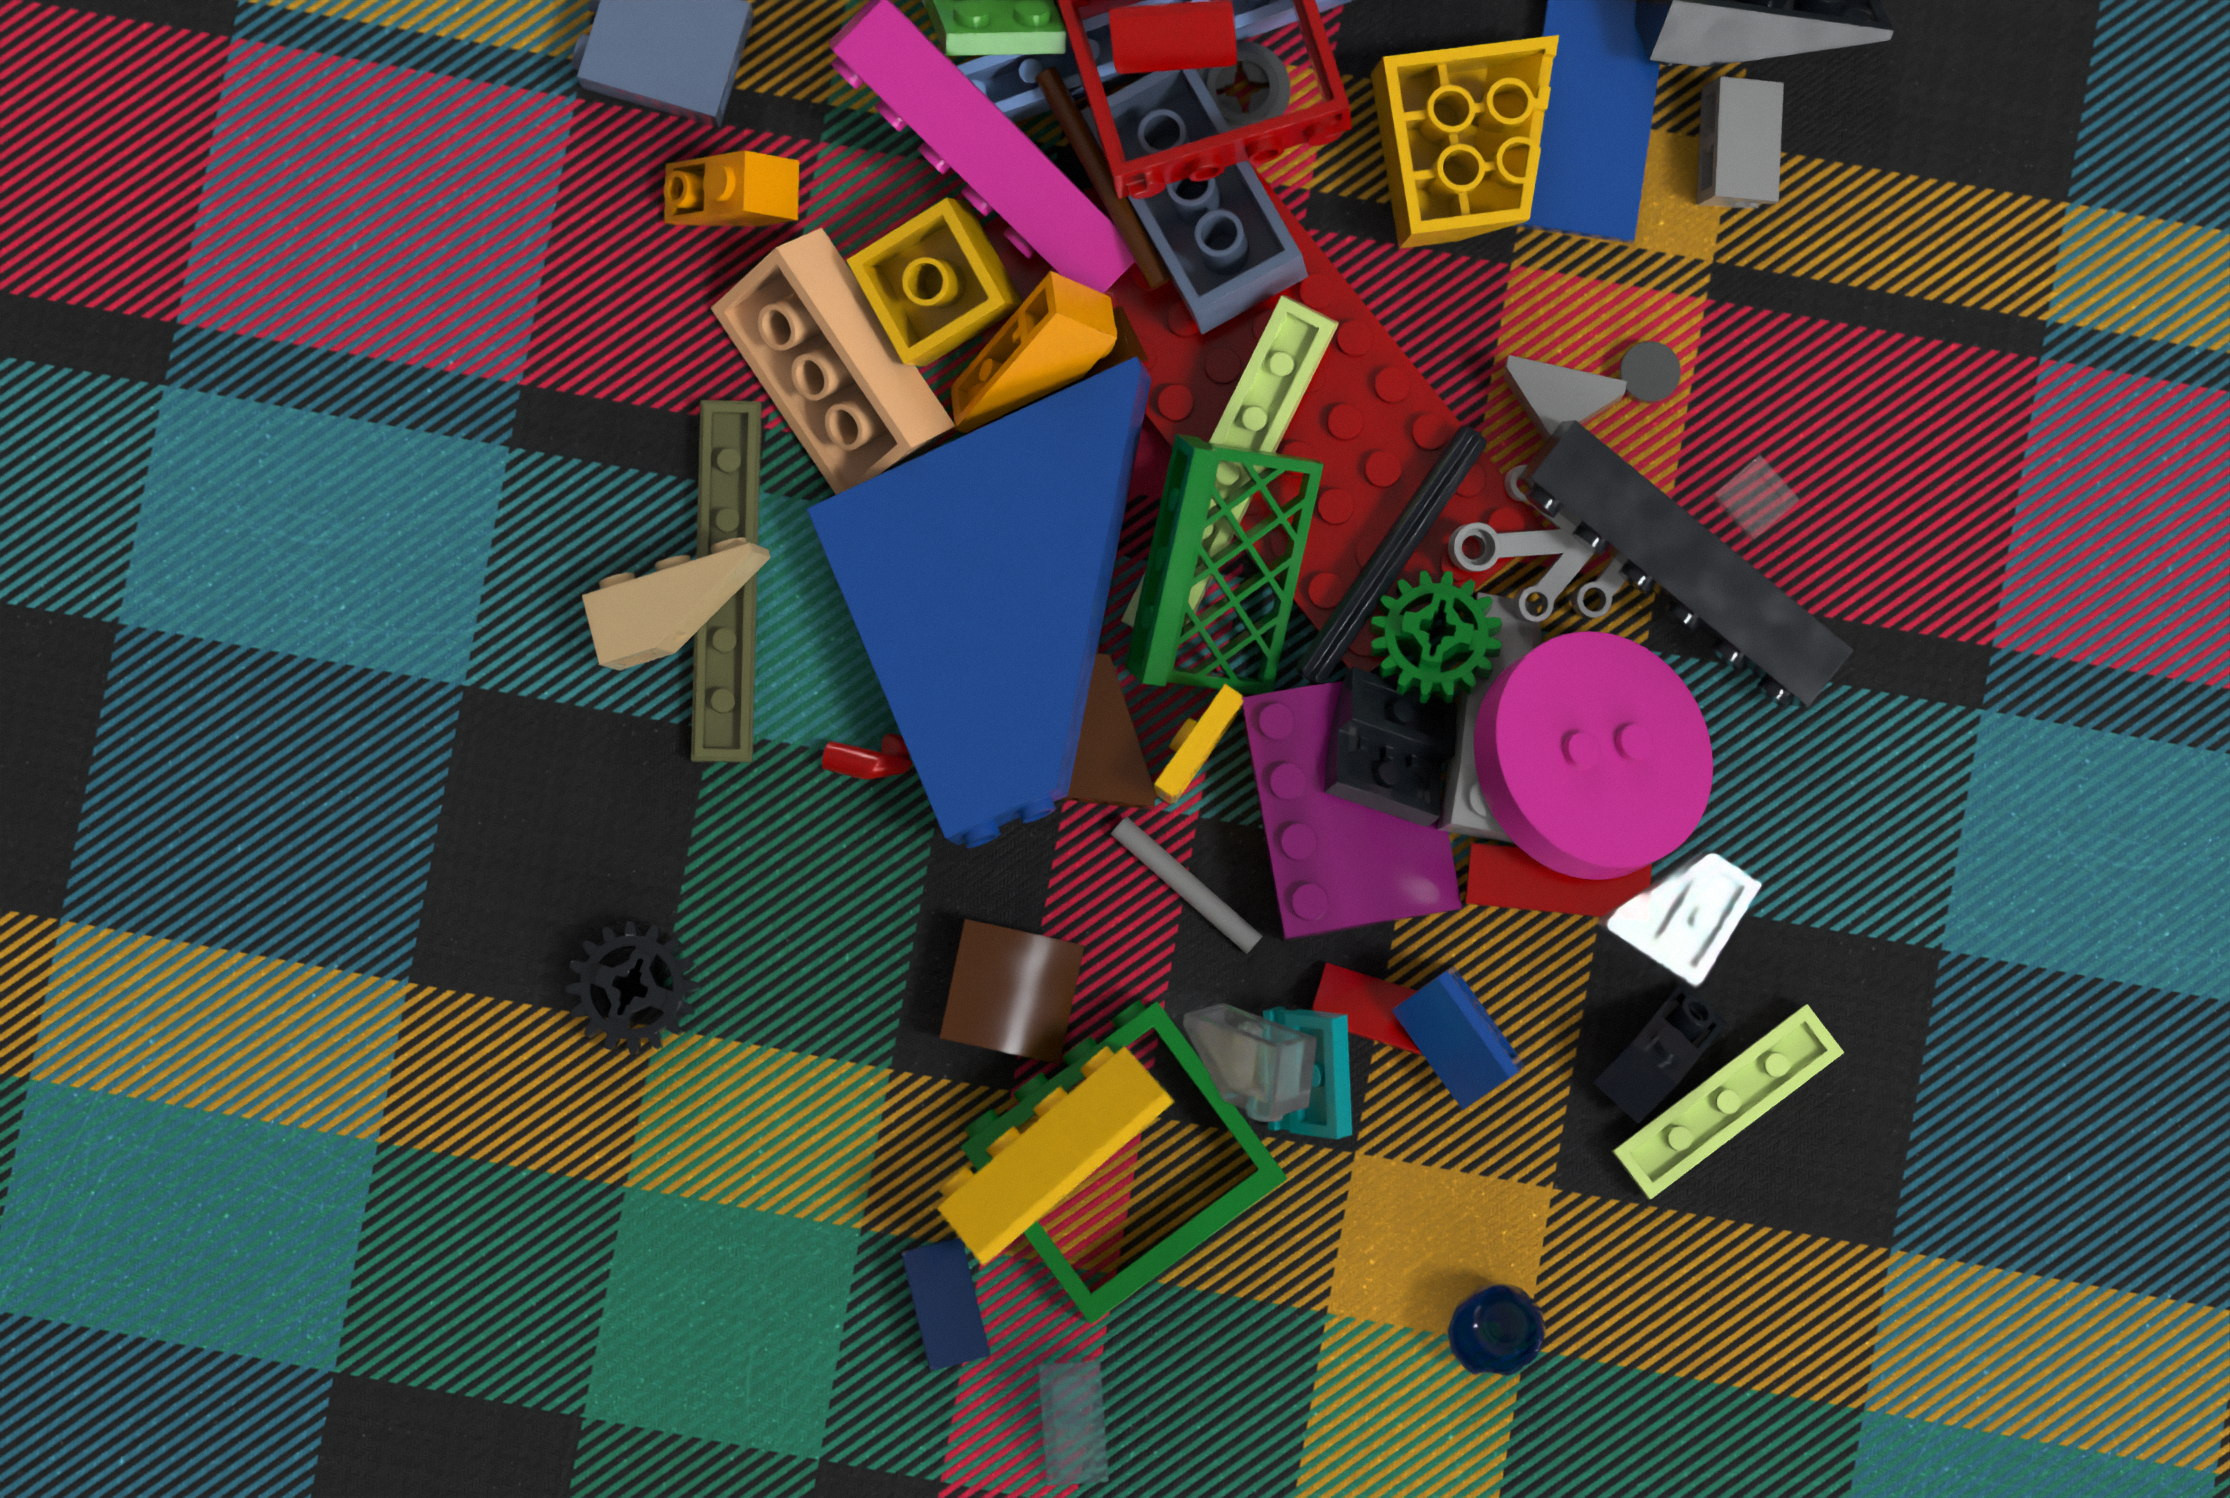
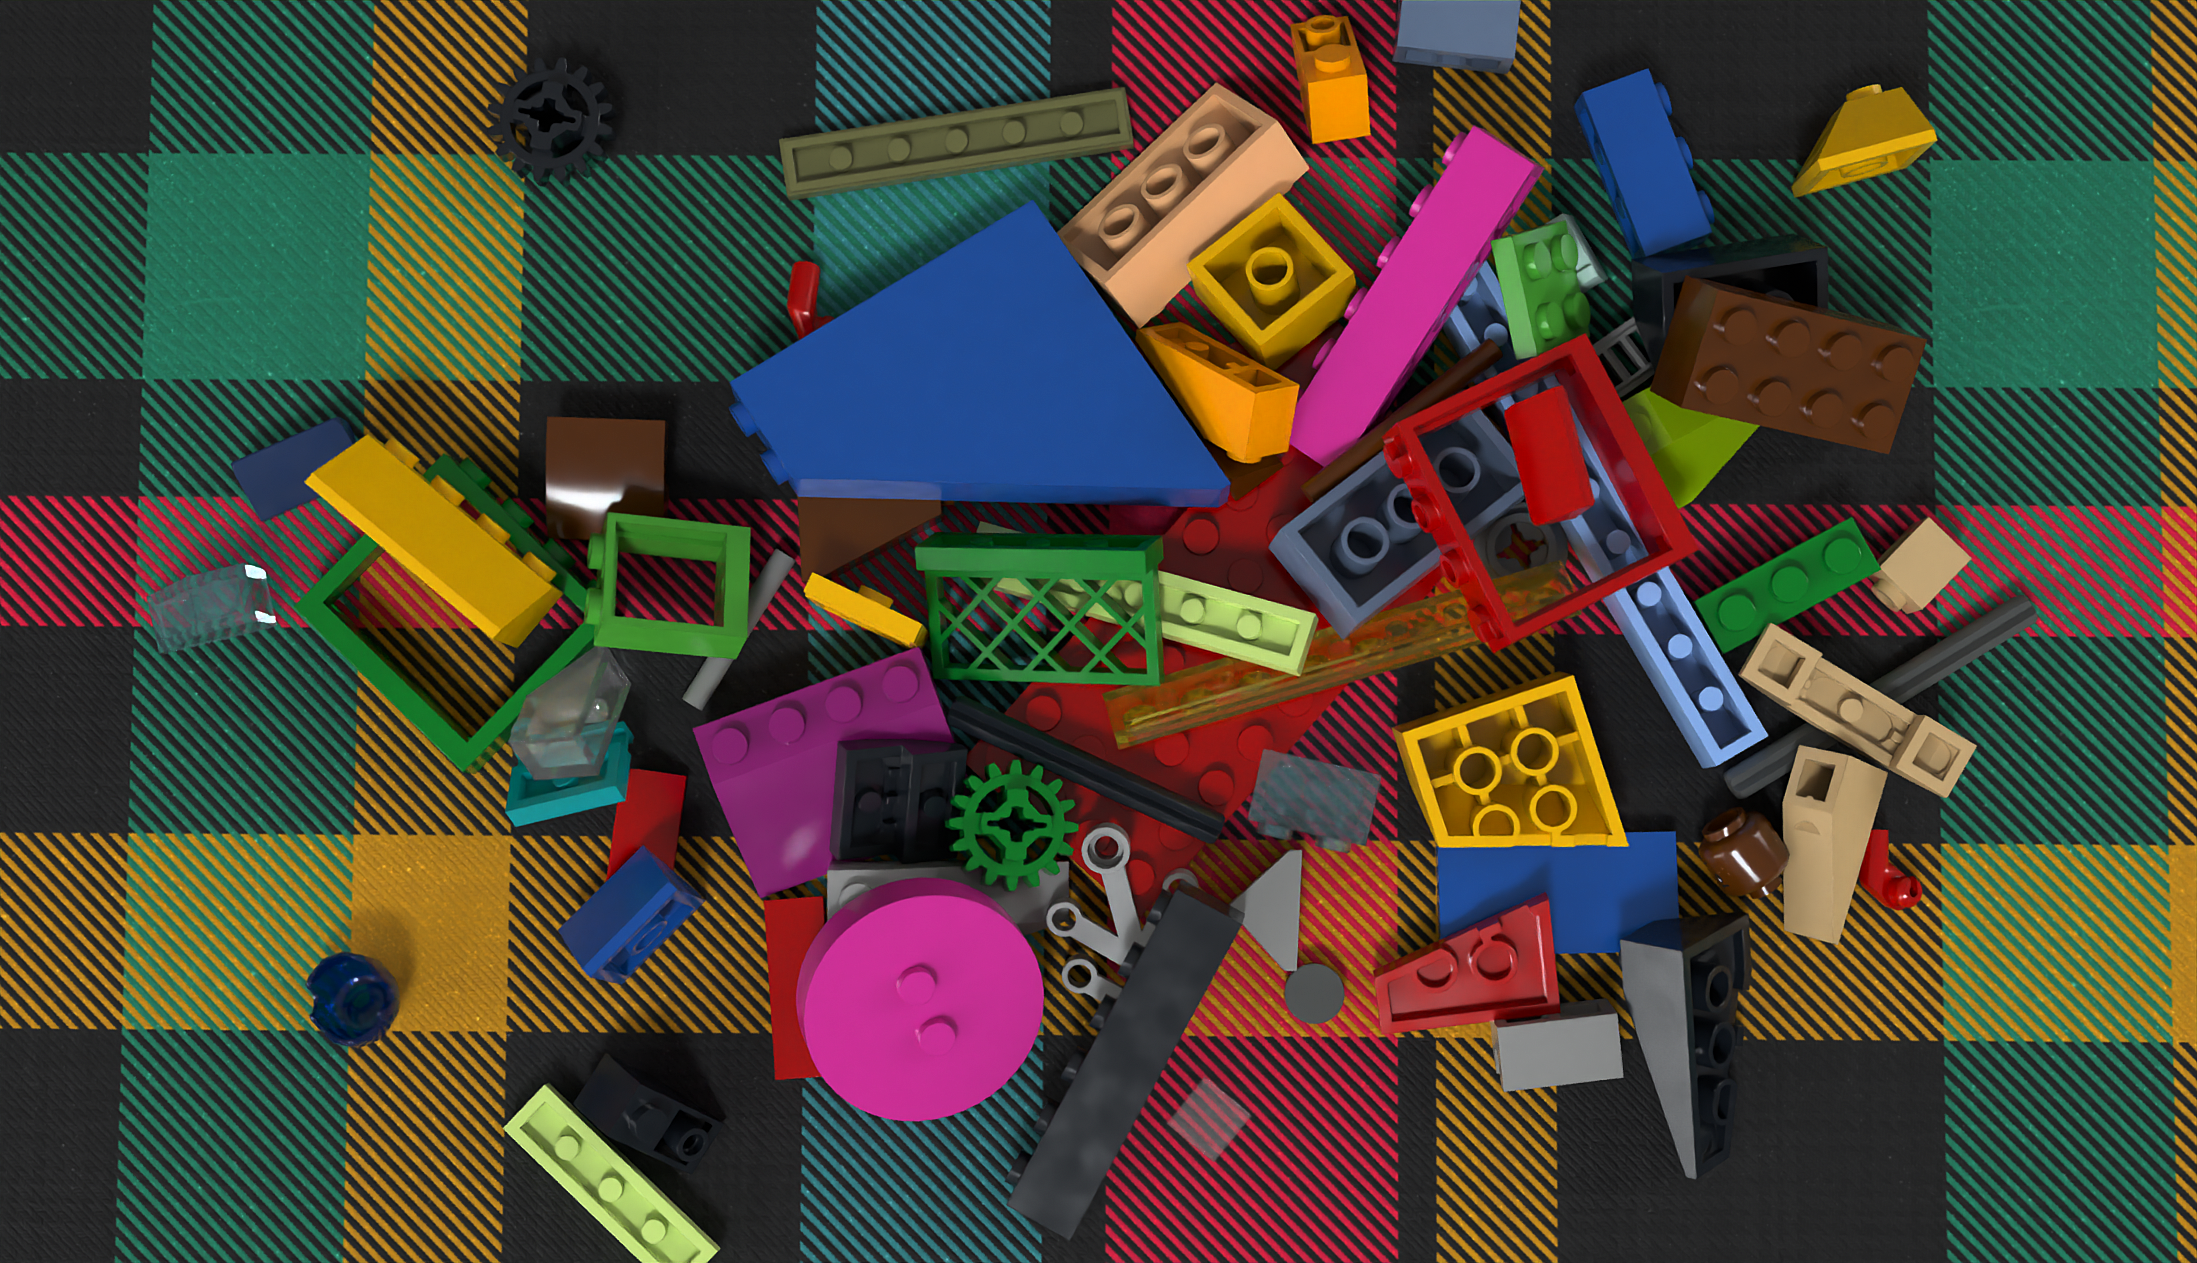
camera: 85 degrees right, 0 degrees up
(661, 611) = (912, 84): tan slope -> none
(1146, 880) = (677, 539): none -> bright green window
(1316, 222) = (1380, 645): none -> clear yellow plate
(1458, 336) = (1313, 799): none -> clear light blue bracket
(1659, 210) = (1475, 975): none -> red wing
(1685, 915) = (785, 1116): clear wing -> none

